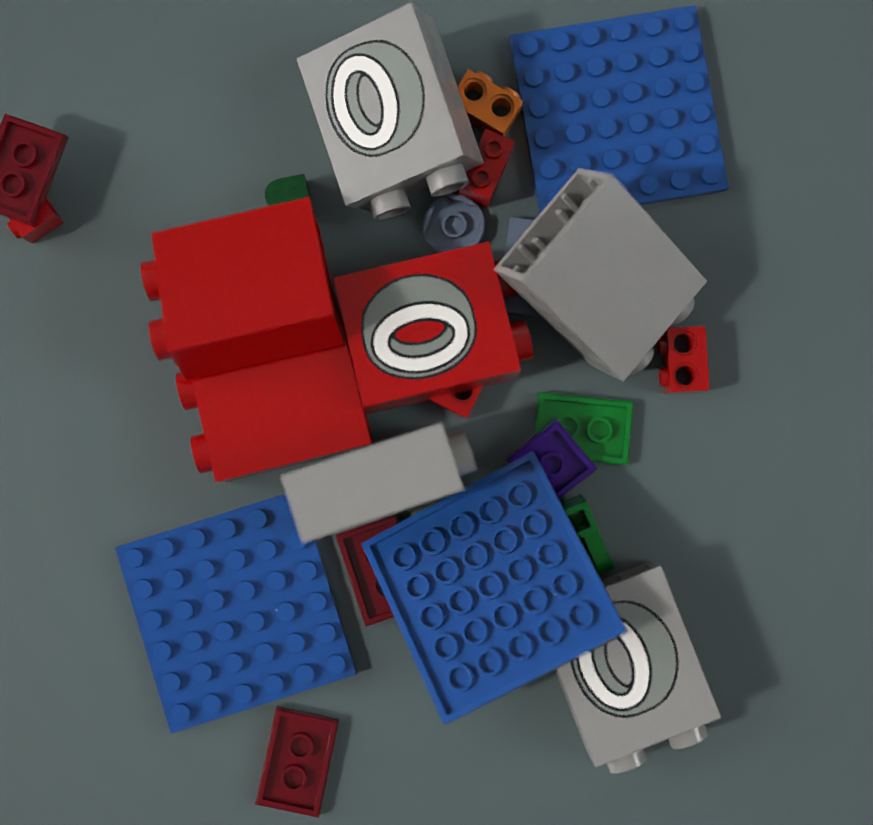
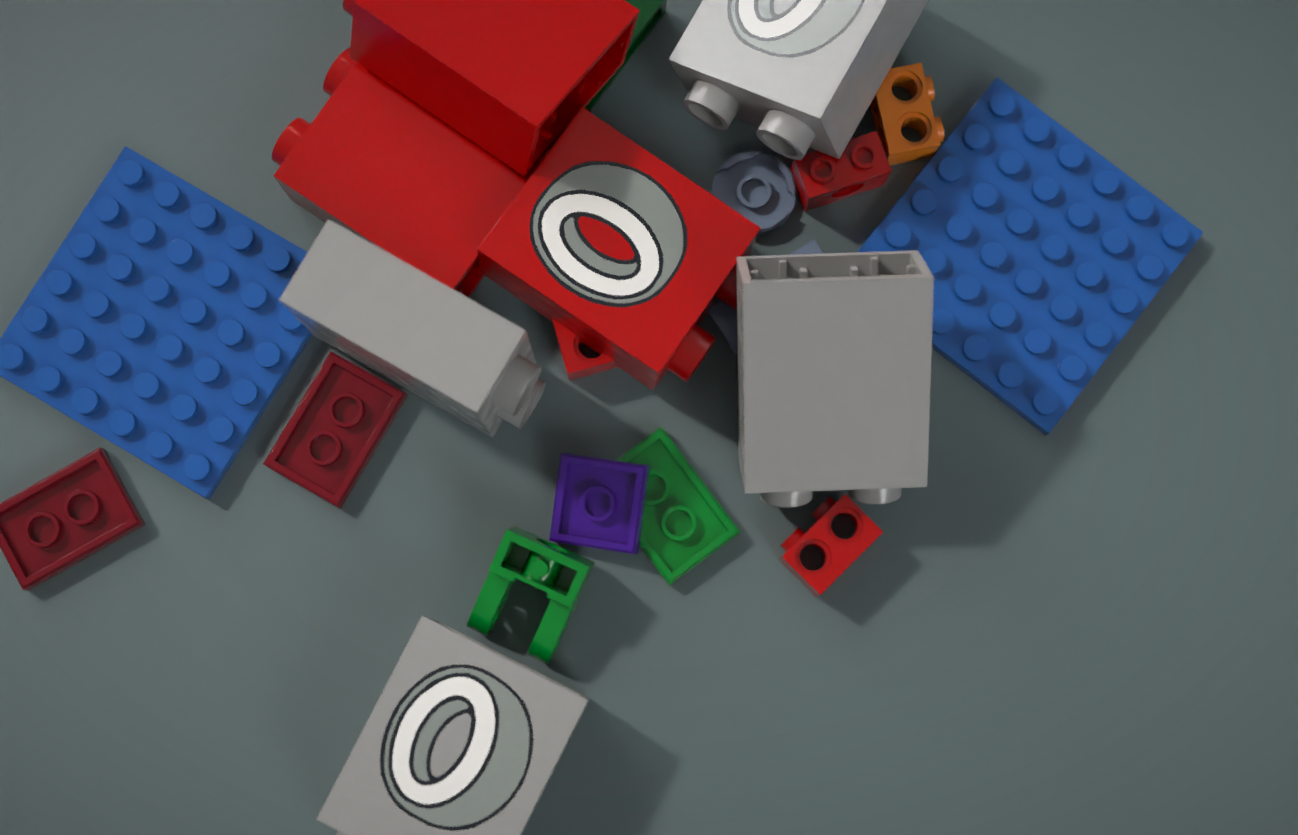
camera: 45 degrees right, 5 degrees down
(492, 588) = (410, 548): blue plate -> none

